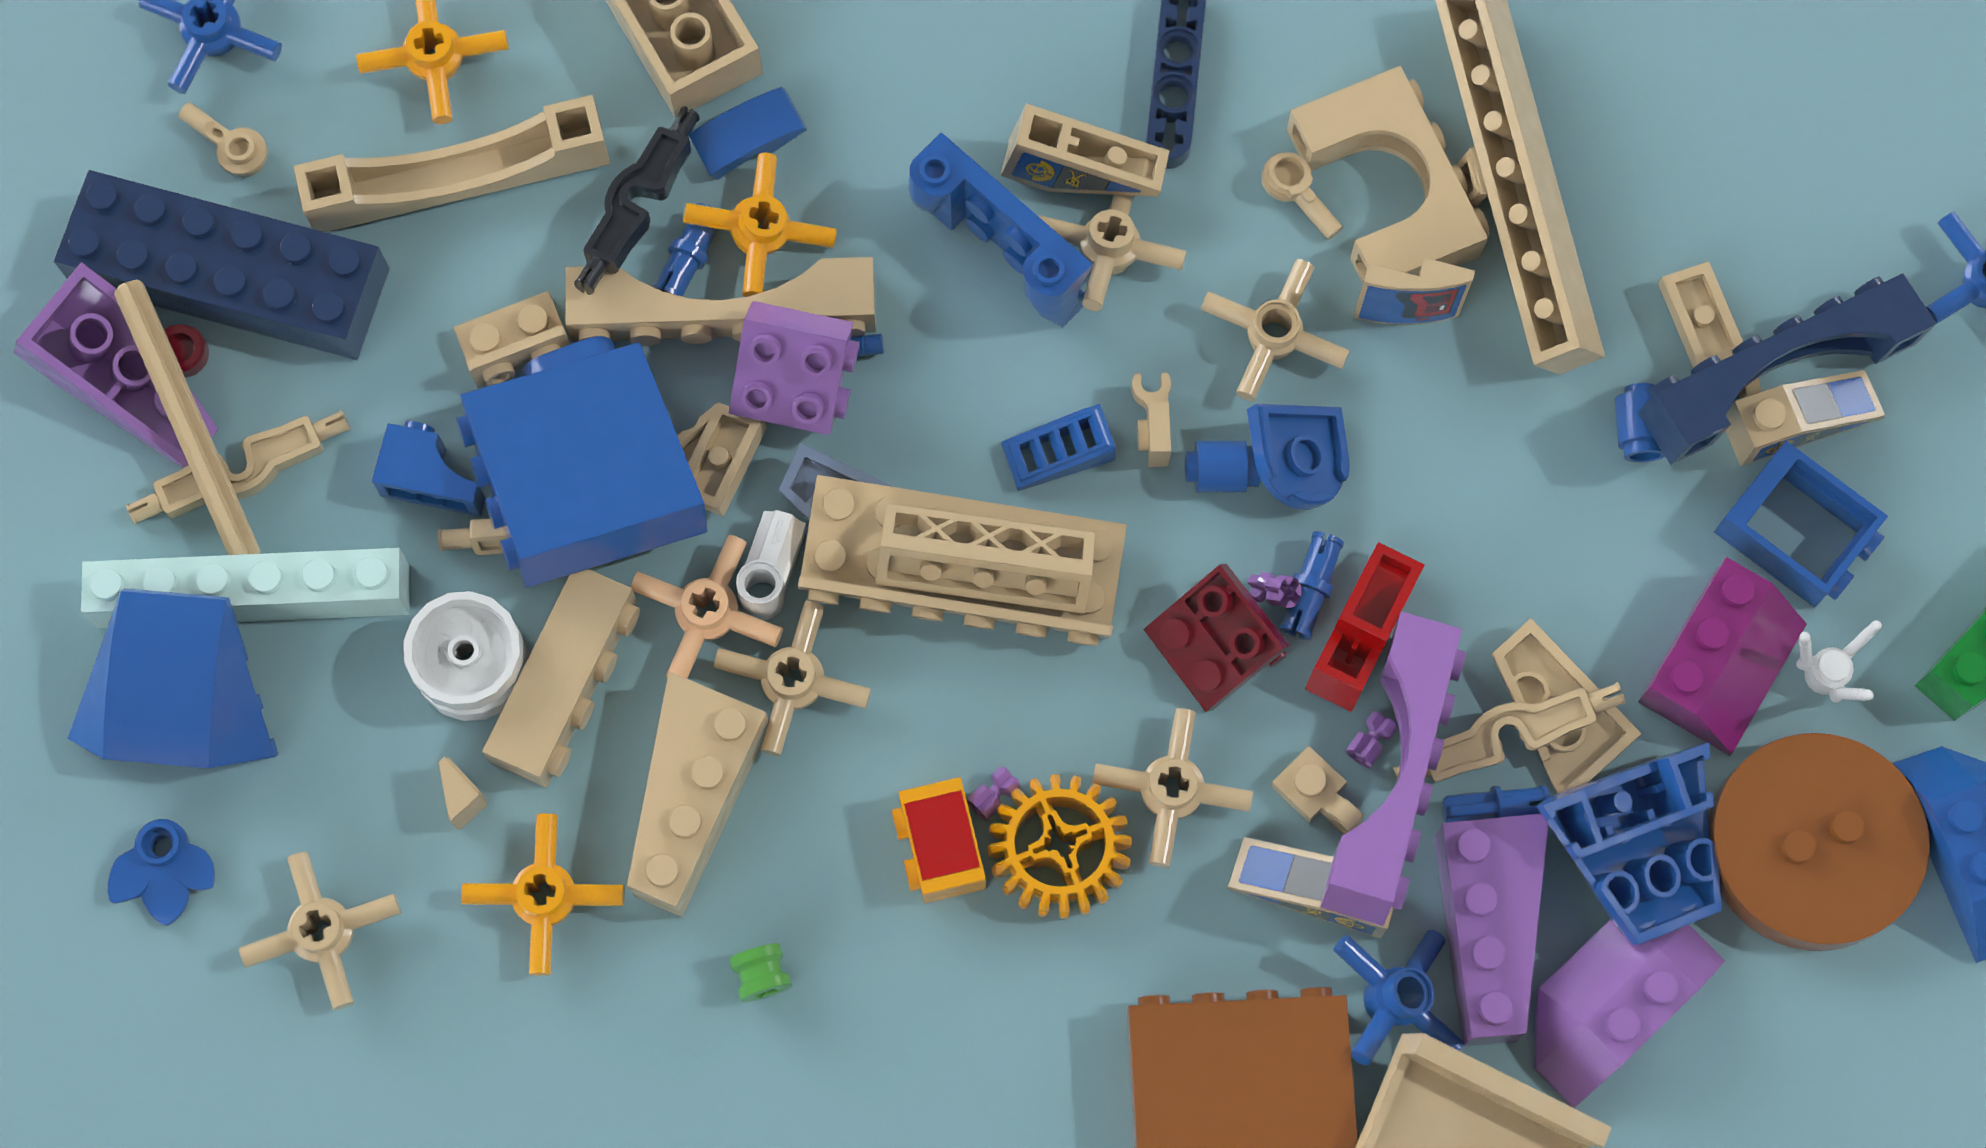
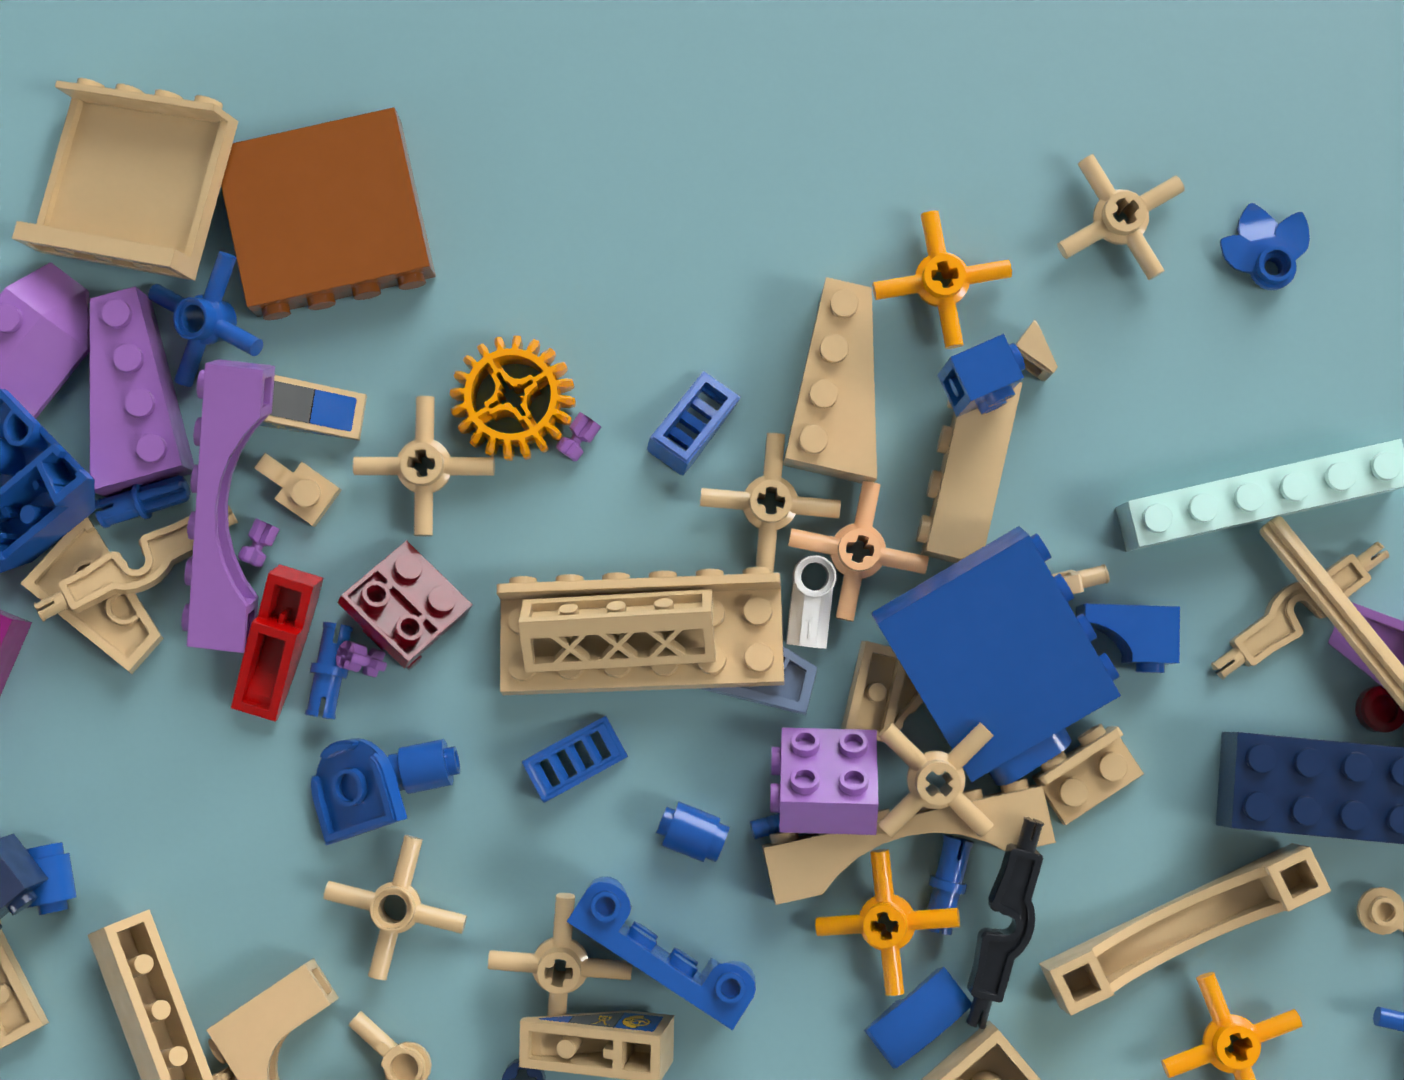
camera: 165 degrees right, 10 degrees up
(172, 686) = (1301, 390): blue wedge -> none
(447, 632) = (1083, 470): white wheel -> none
(527, 745) = (982, 376): none -> blue brick
(677, 345) = (949, 794): none -> tan bar
(760, 972) = (745, 247): bright green wheel -> none
(880, 744) = (669, 452): none -> blue slope
(940, 840) = (615, 383): brick -> none
(946, 350) = (692, 832): none -> blue brick
(1154, 432) = (489, 787): tan plate -> none
(1410, 299) = (263, 961): slope -> none

